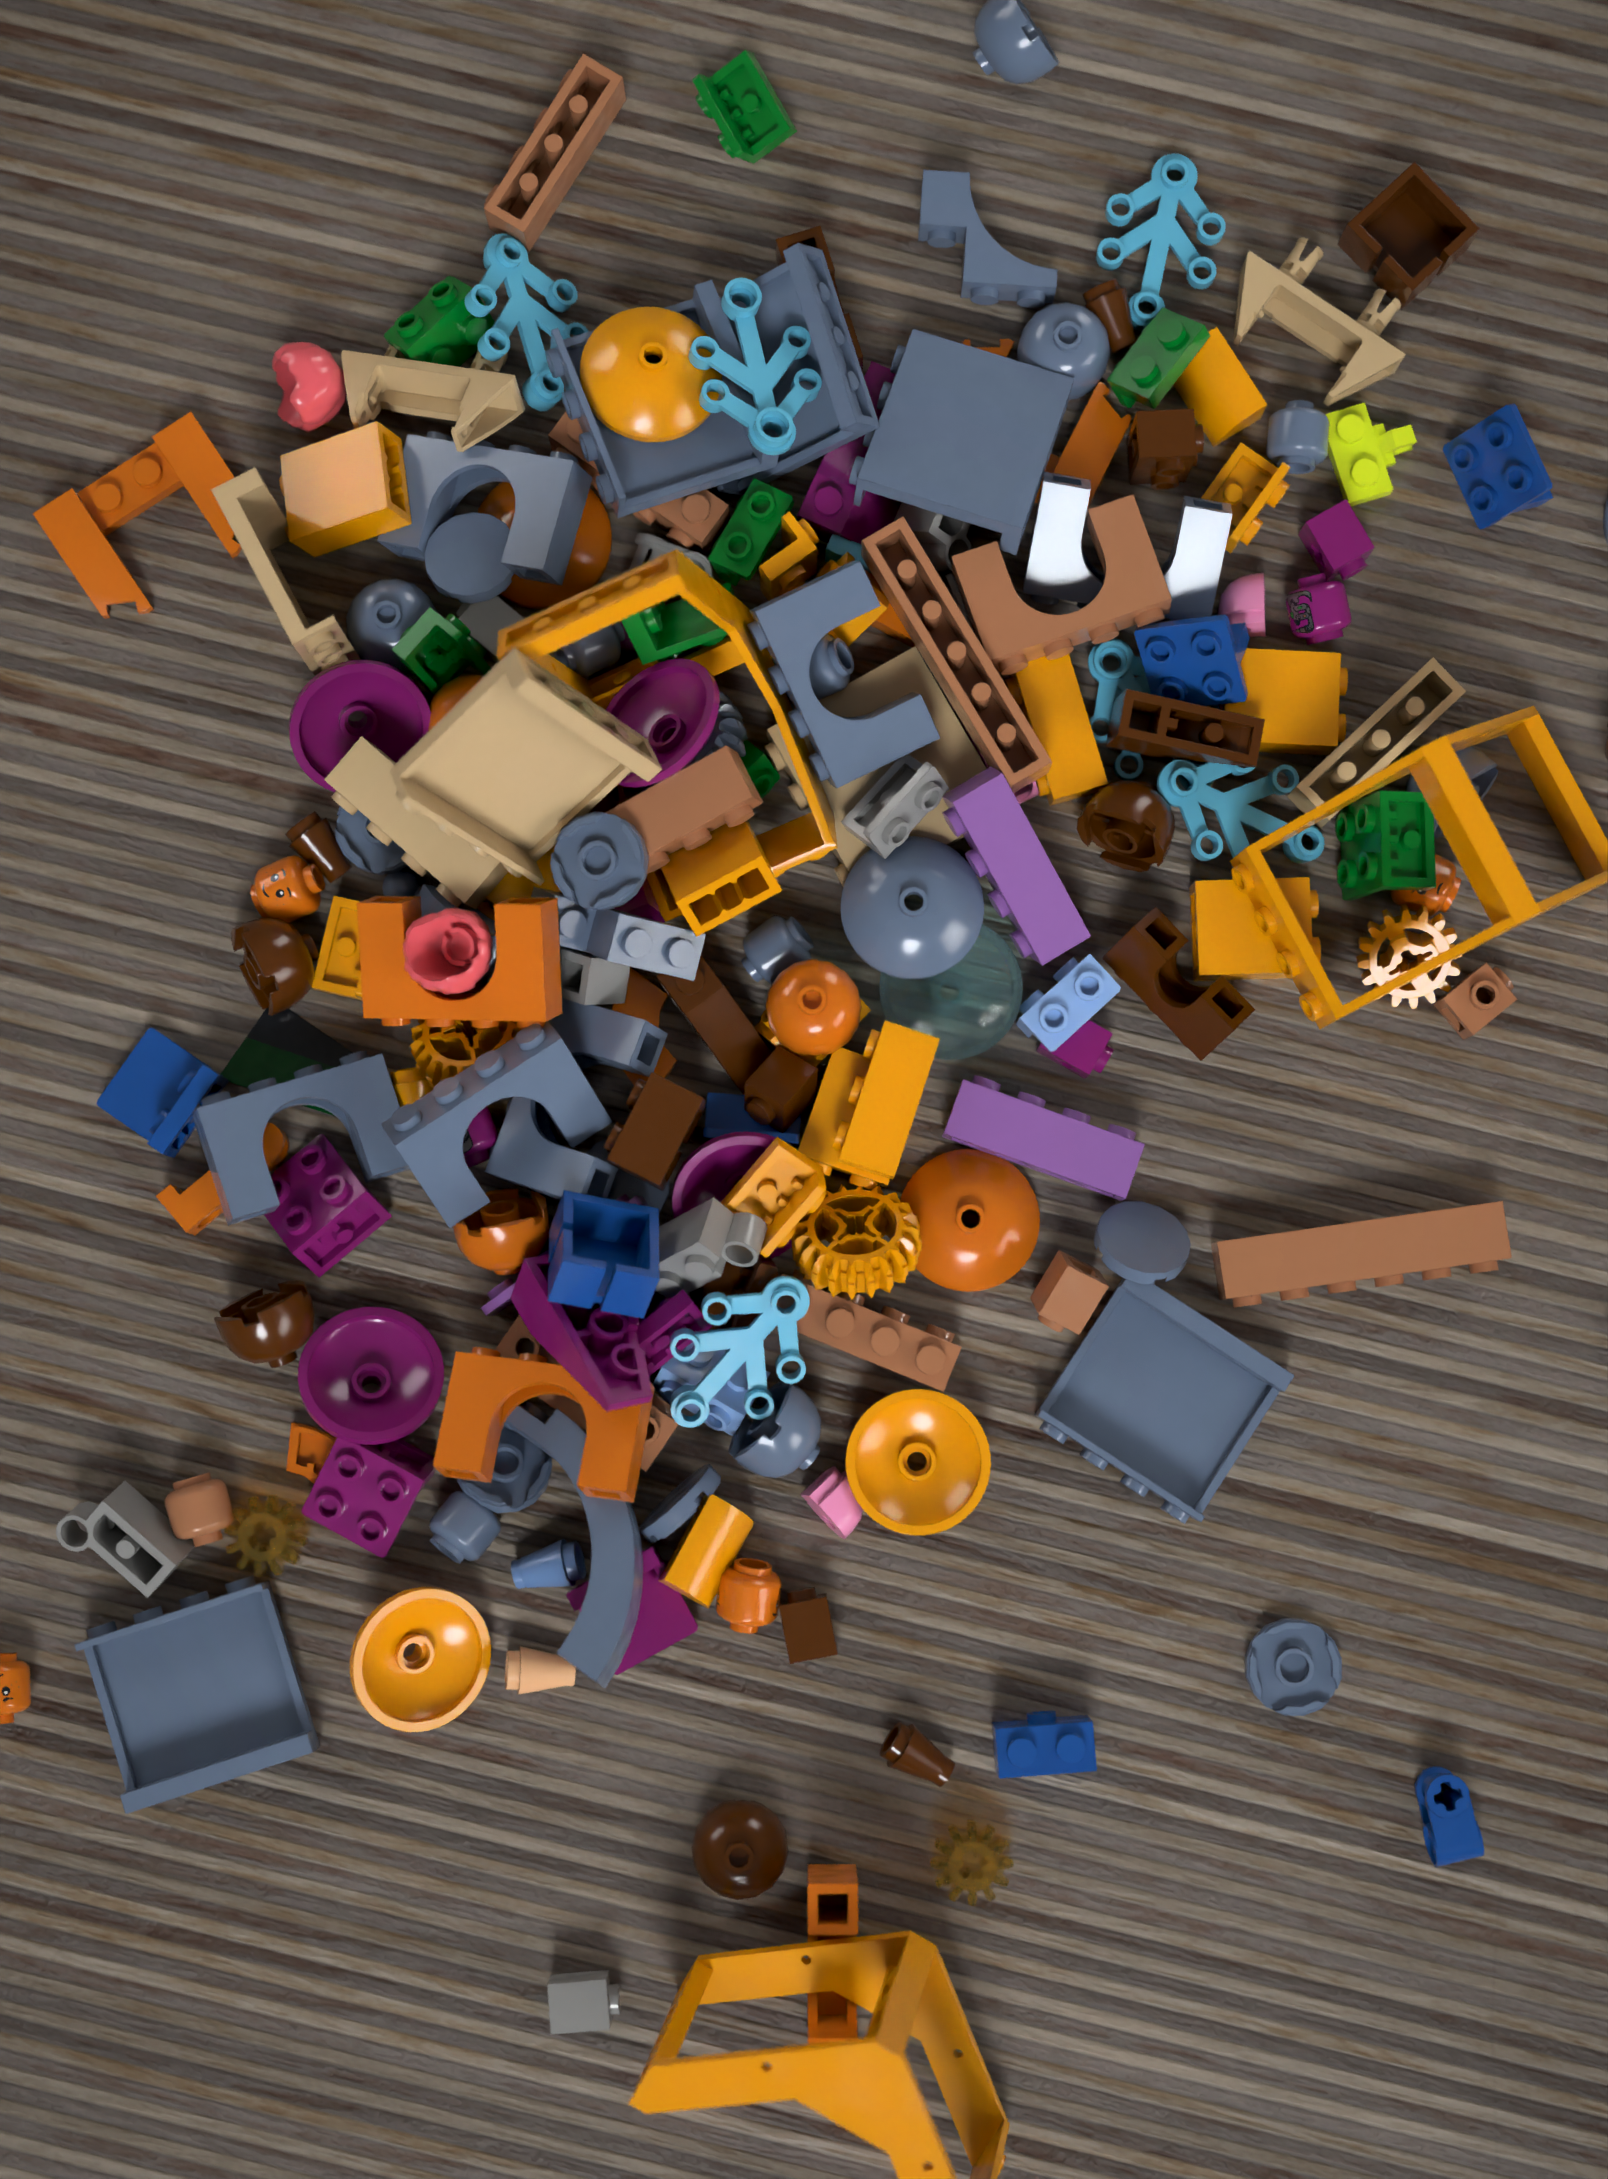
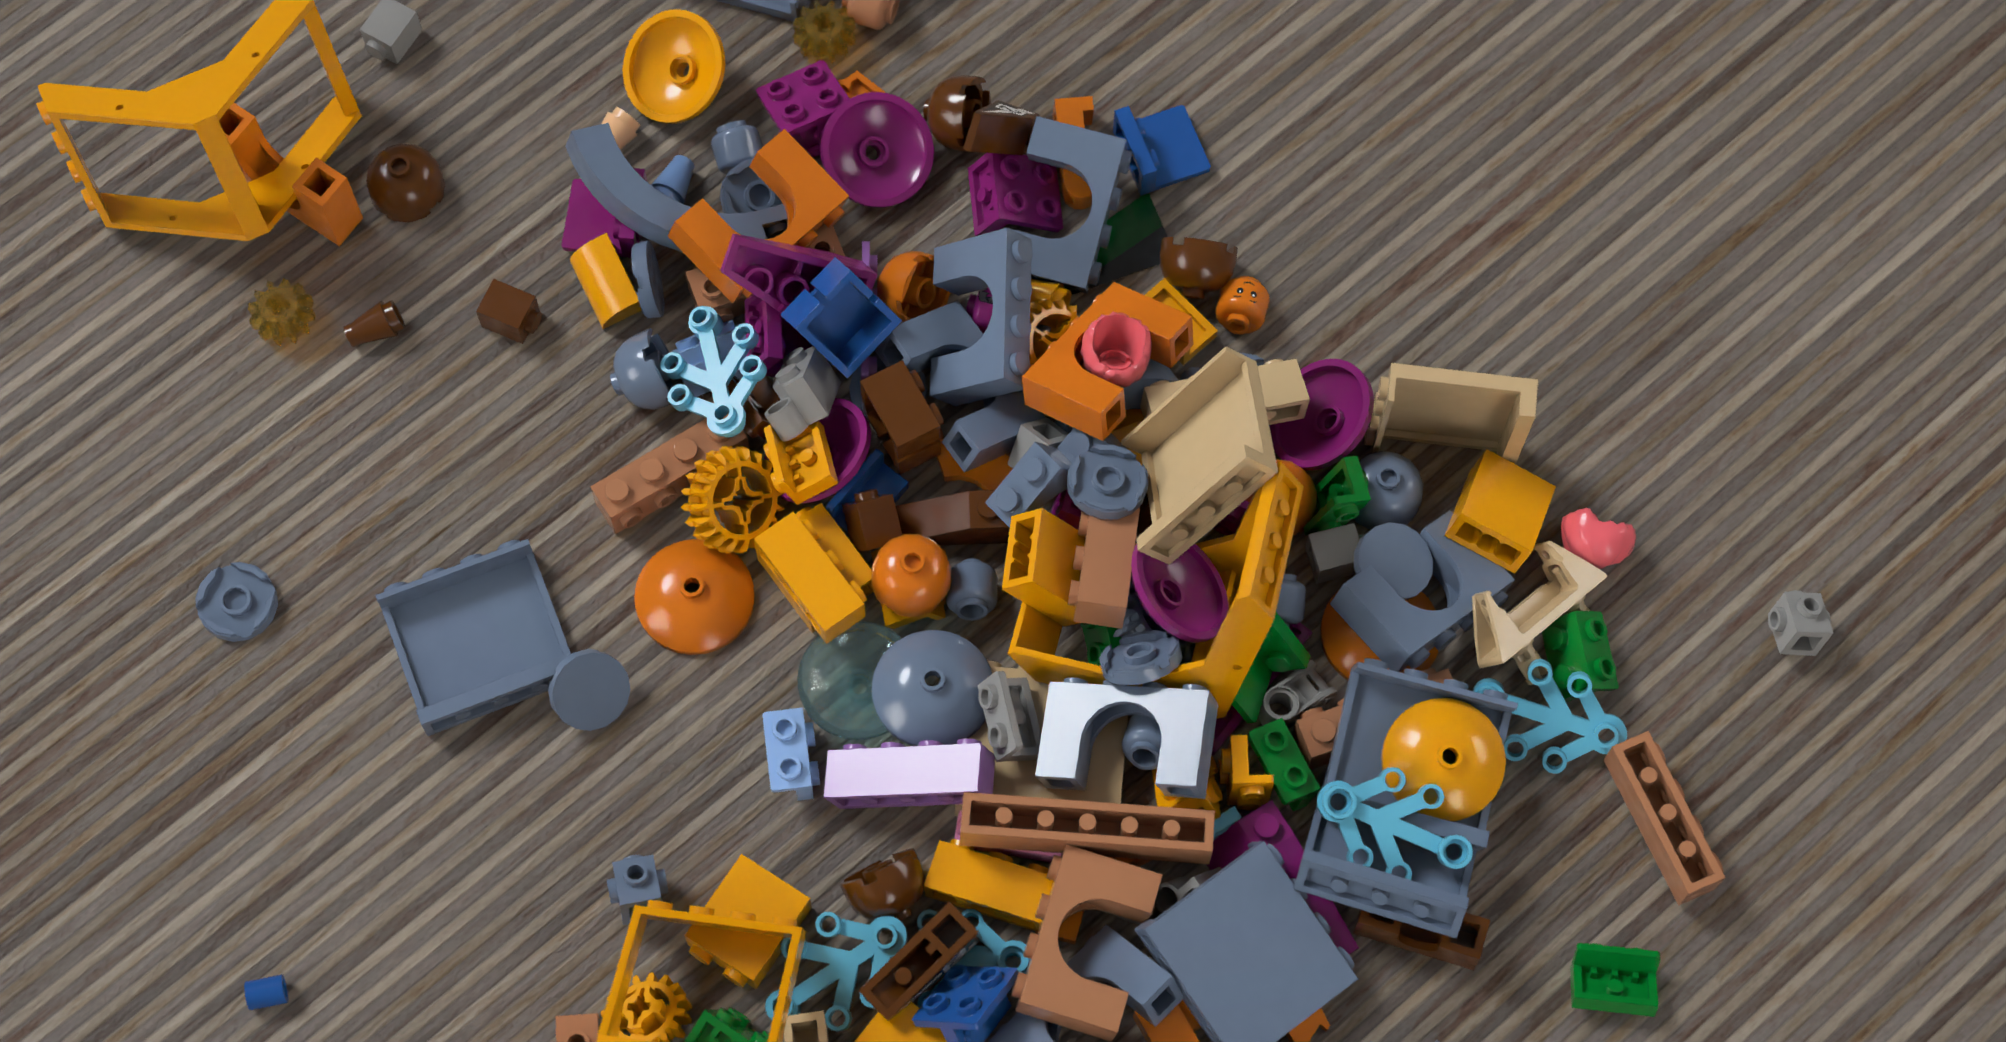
camera: 125 degrees right, 15 degrees down
(83, 519) = (1602, 428): orange wedge -> none
(261, 1256) = (1000, 129): none -> reddish brown slope
(264, 146) = (1800, 623): none -> light grey brick
(317, 845) = (1264, 342): reddish brown cone -> none
(748, 1595) = (558, 289): orange head -> none
(760, 708) = (1141, 658): none -> sand blue tile
(834, 1501) = (575, 382): bright pink piece -> none
(954, 1467) = (553, 422): light orange dish -> none
(1043, 1139) = (709, 674): medium lavender brick -> none
(1044, 1745) = (316, 403): blue brick -> none
(1068, 1293) = (593, 618): nougat brick -> none
(1083, 1050) = (749, 746): magenta brick -> none
(1148, 966) = (719, 838): reddish brown arch -> none
(1310, 1039) = (635, 884): none -> sand blue brick
(1361, 1251) = (468, 838): nougat brick -> none
(1448, 1825) = (57, 627): blue piece -> none

